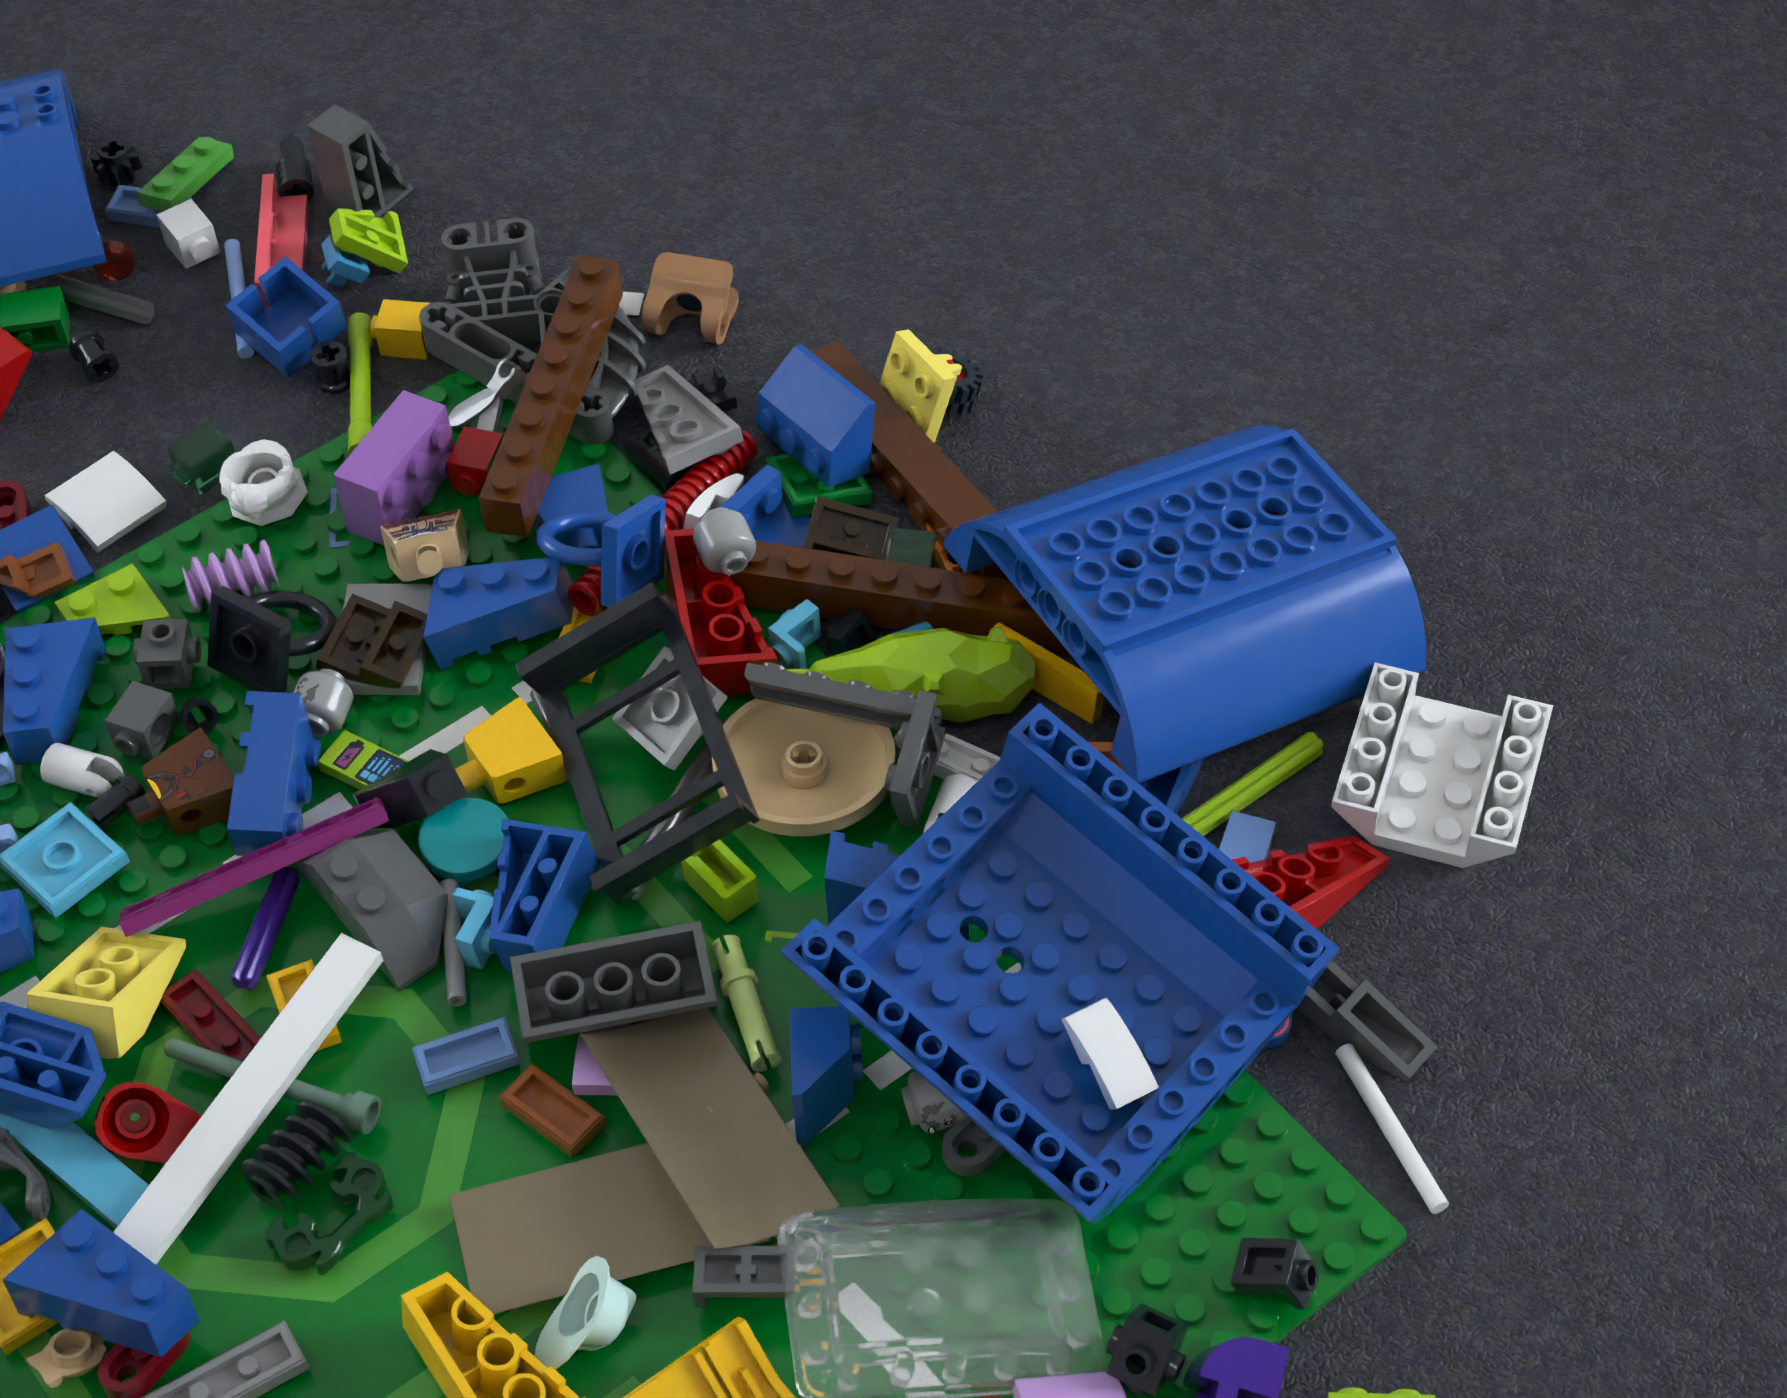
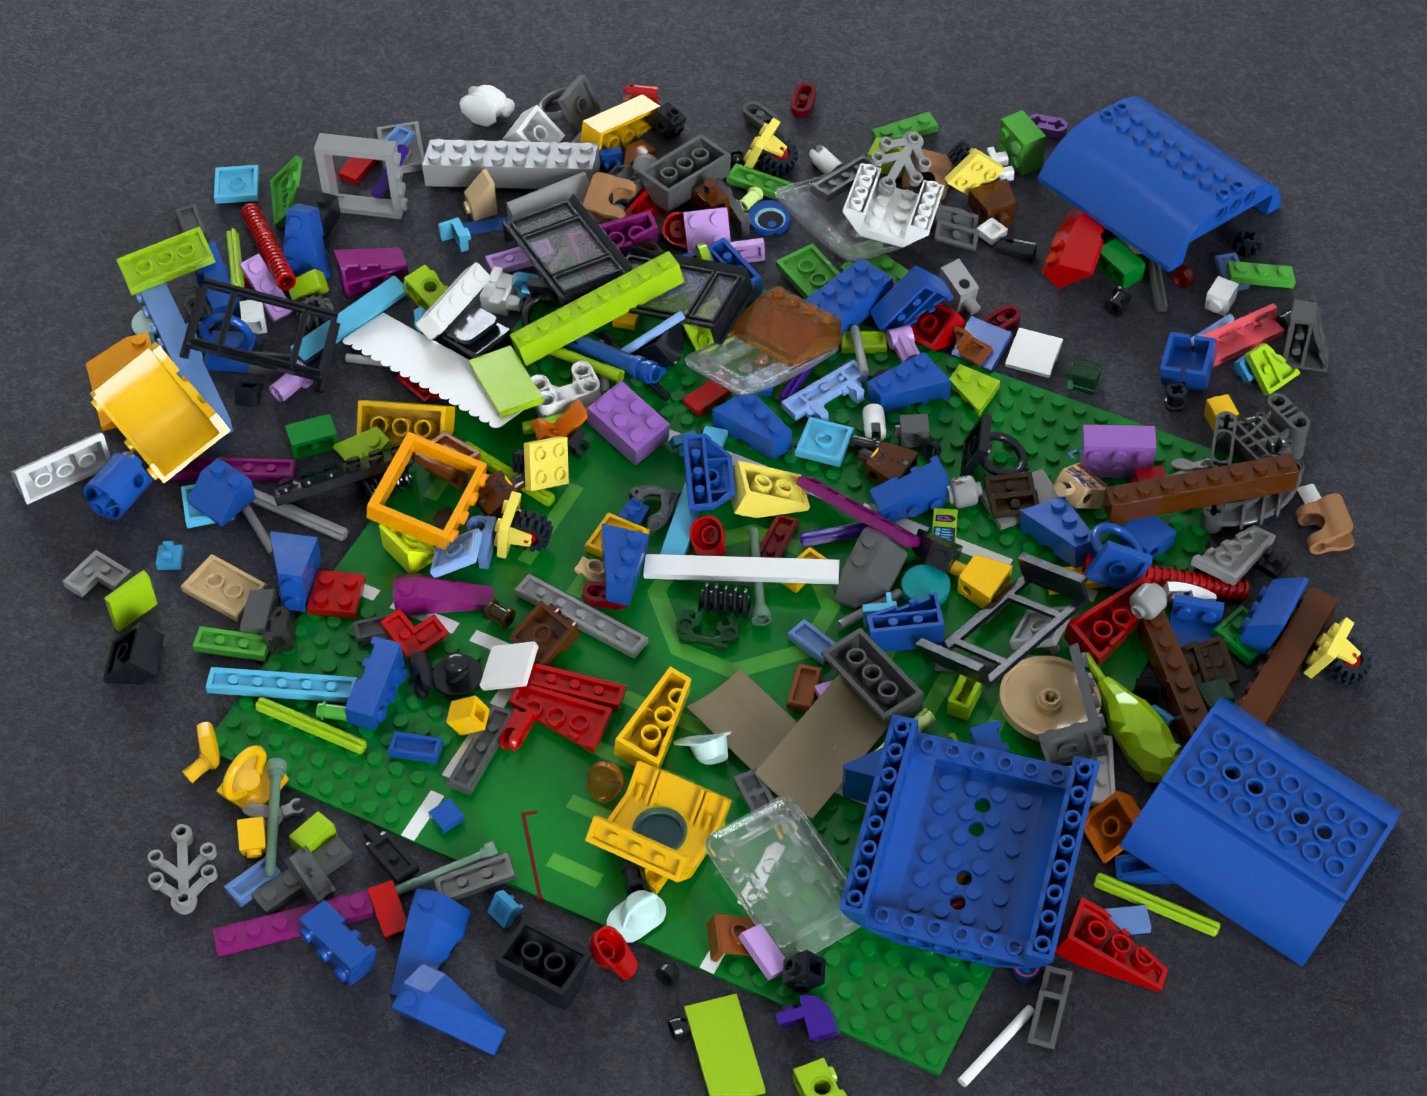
camera: 65 degrees right, 0 degrees up
(167, 653) = (954, 419): dark grey brick -> none
(233, 574) = (1013, 420): lavender piece -> none
(262, 483) = (1077, 404): white piece -> none
(360, 378) = (1179, 410): lime piece -> none
(793, 633) = (1127, 663): medium azure bracket -> none
(1111, 1052) = (945, 889): white slope -> none
(1275, 1269) = (879, 1016): black bracket -> none
(1439, 773) = (1229, 987): white slope -> none

